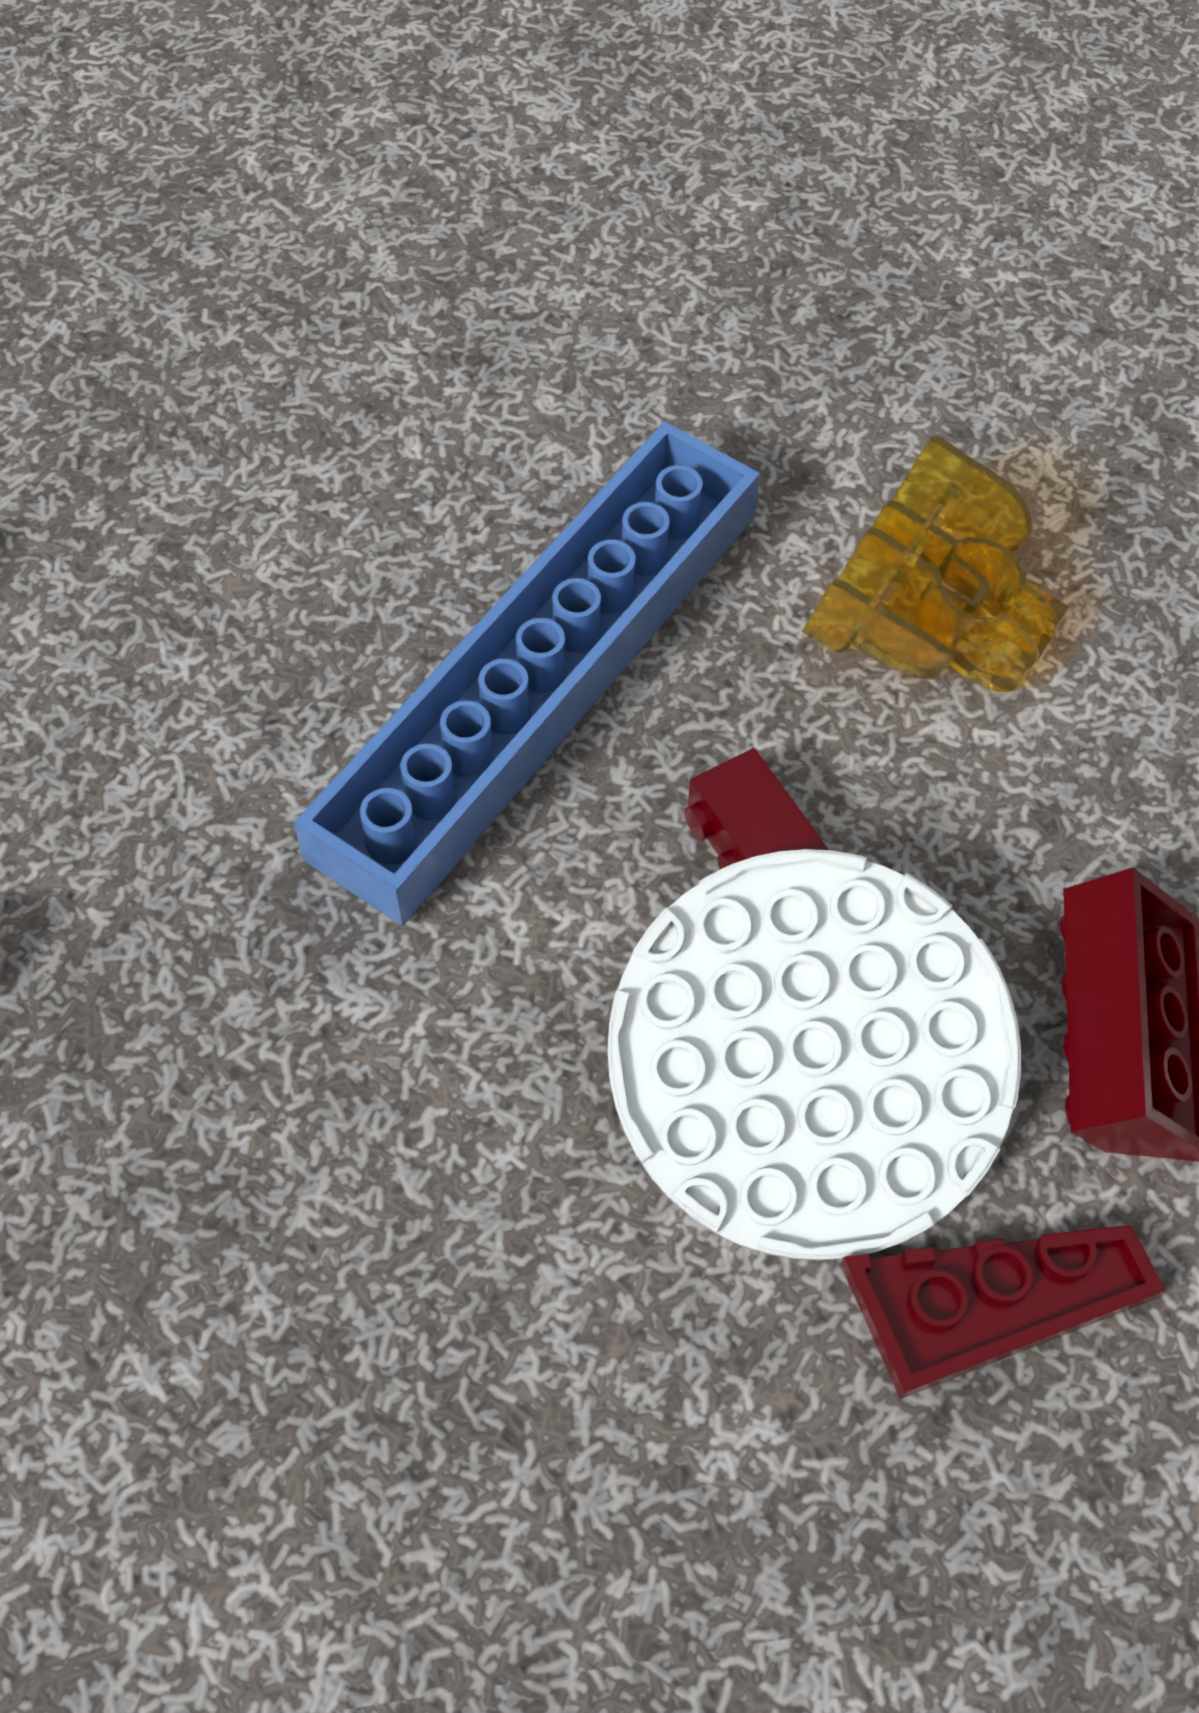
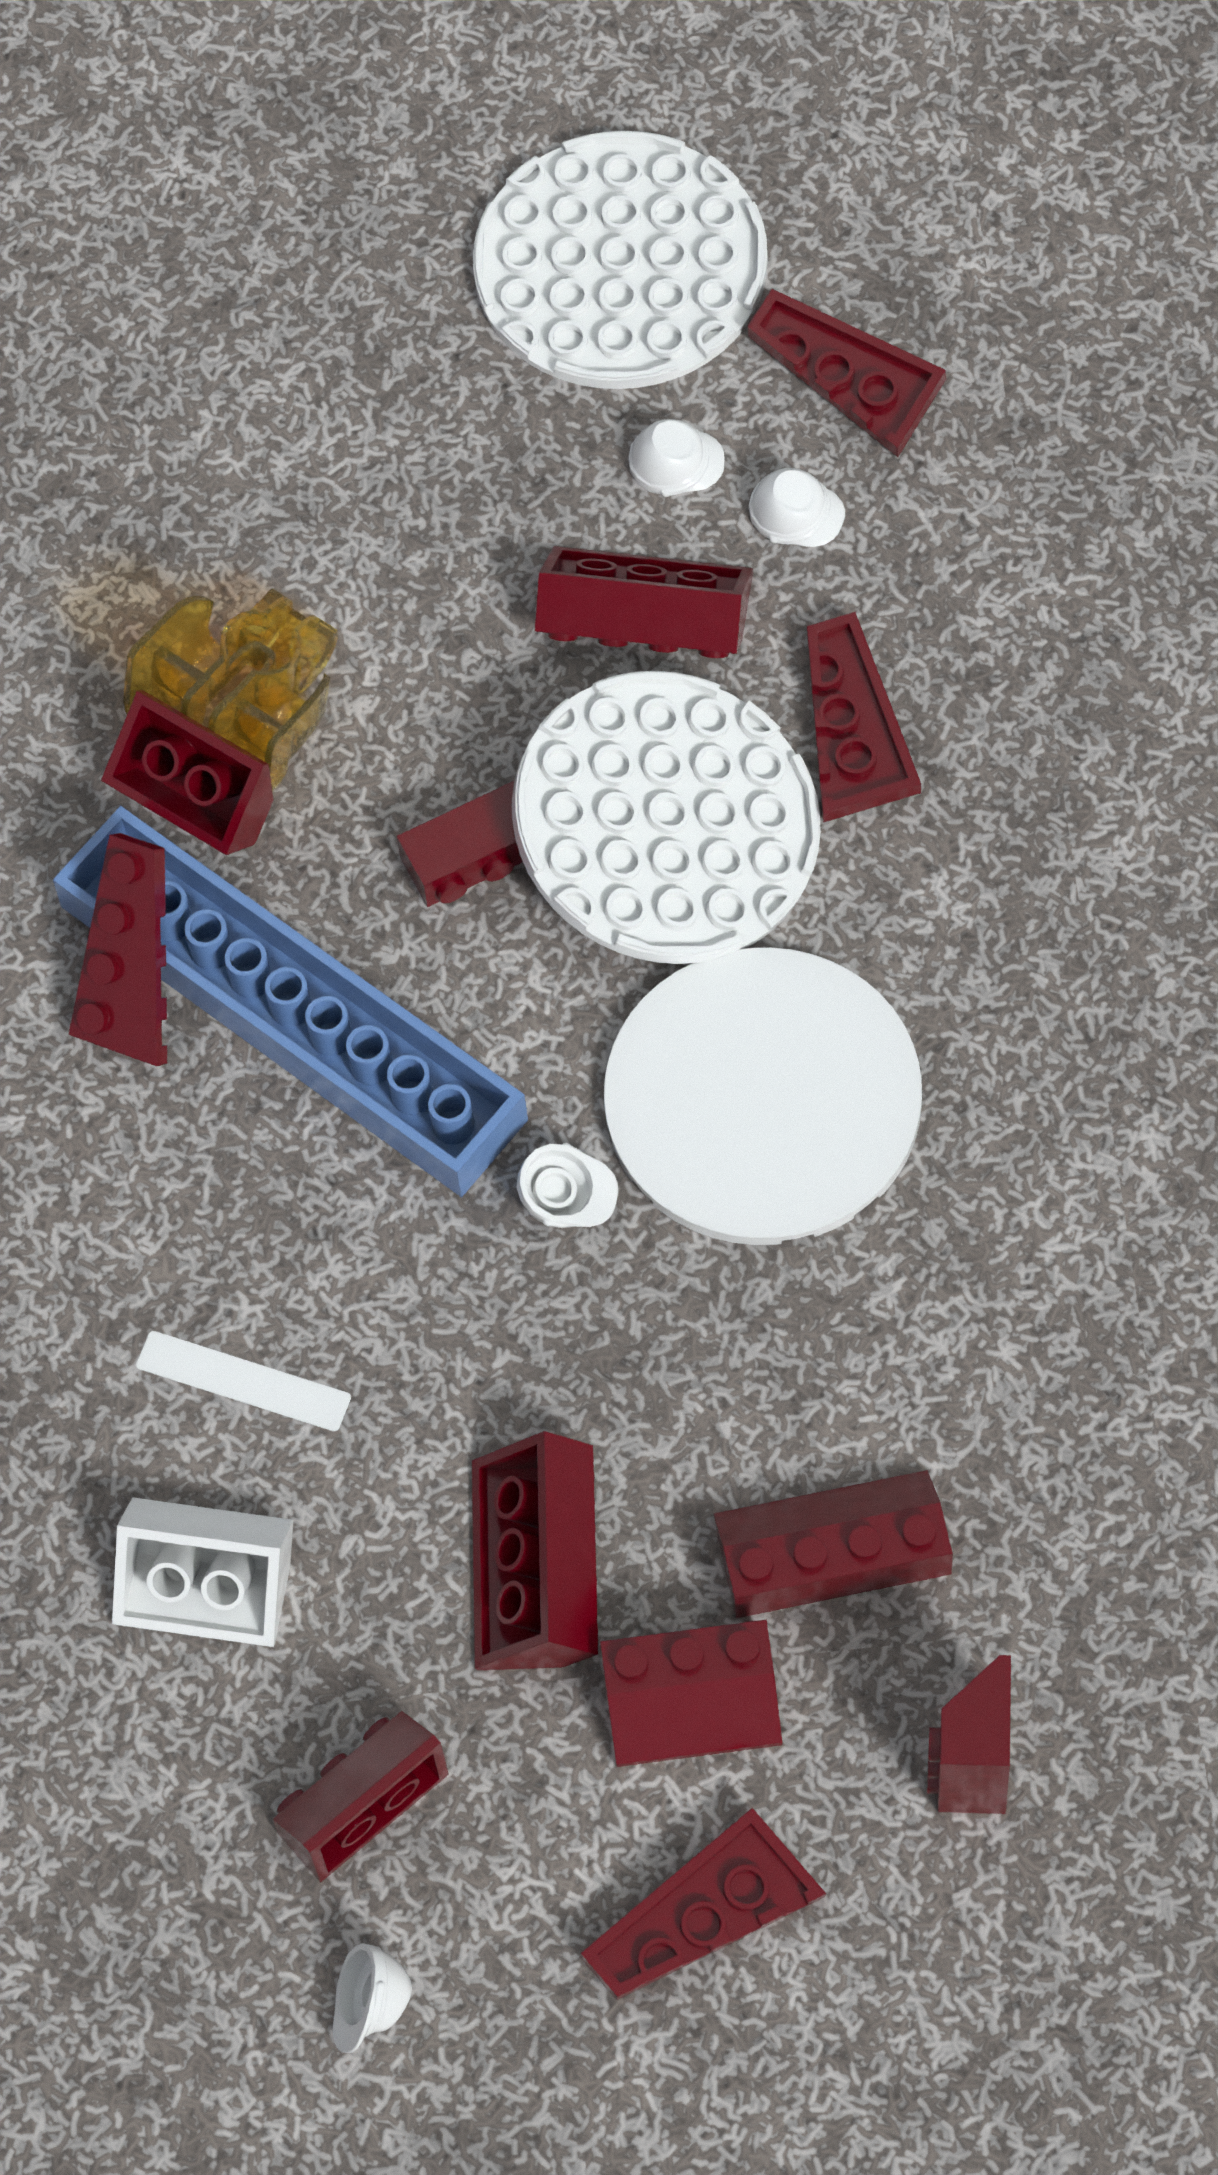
camera: 80 degrees left, 5 degrees up
(97, 669) = (243, 1381): none -> white sticker
(293, 961) = (566, 1187): none -> white hat
(431, 1209) = (763, 1096): none -> white tile
(577, 486) = (121, 969): none -> dark red wing
(805, 543) = (190, 775): none -> dark red slope

